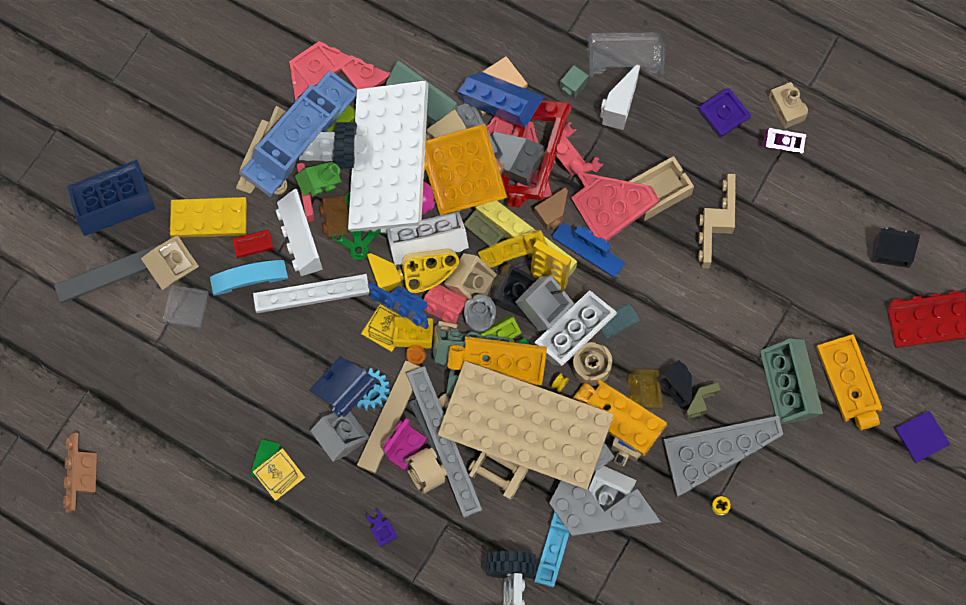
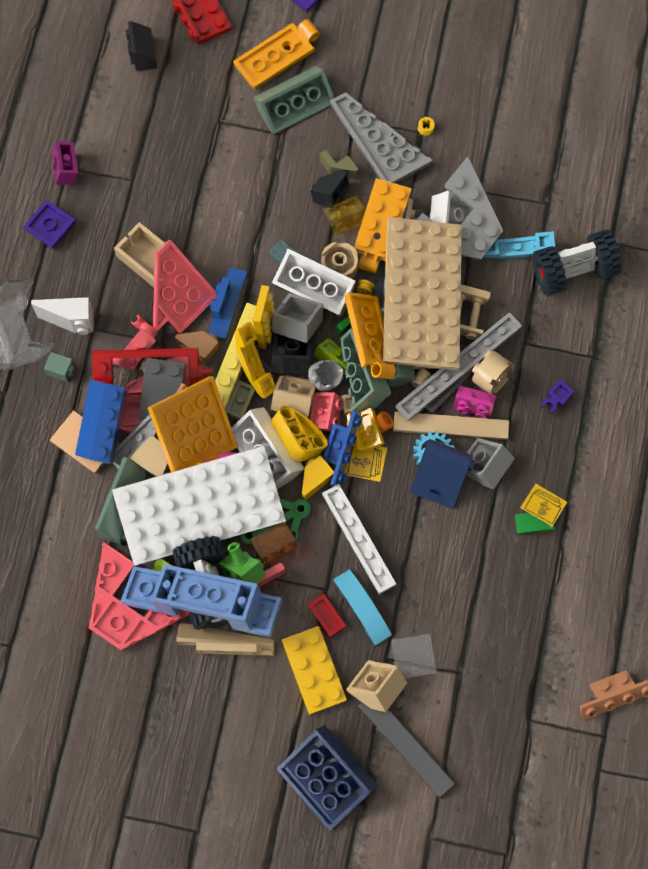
camera: 110 degrees left, 0 degrees up
(299, 234) = (304, 568): white slope -> none
(717, 221) = (162, 200): tan bracket -> none
(788, 105) = (25, 170): tan brick -> none

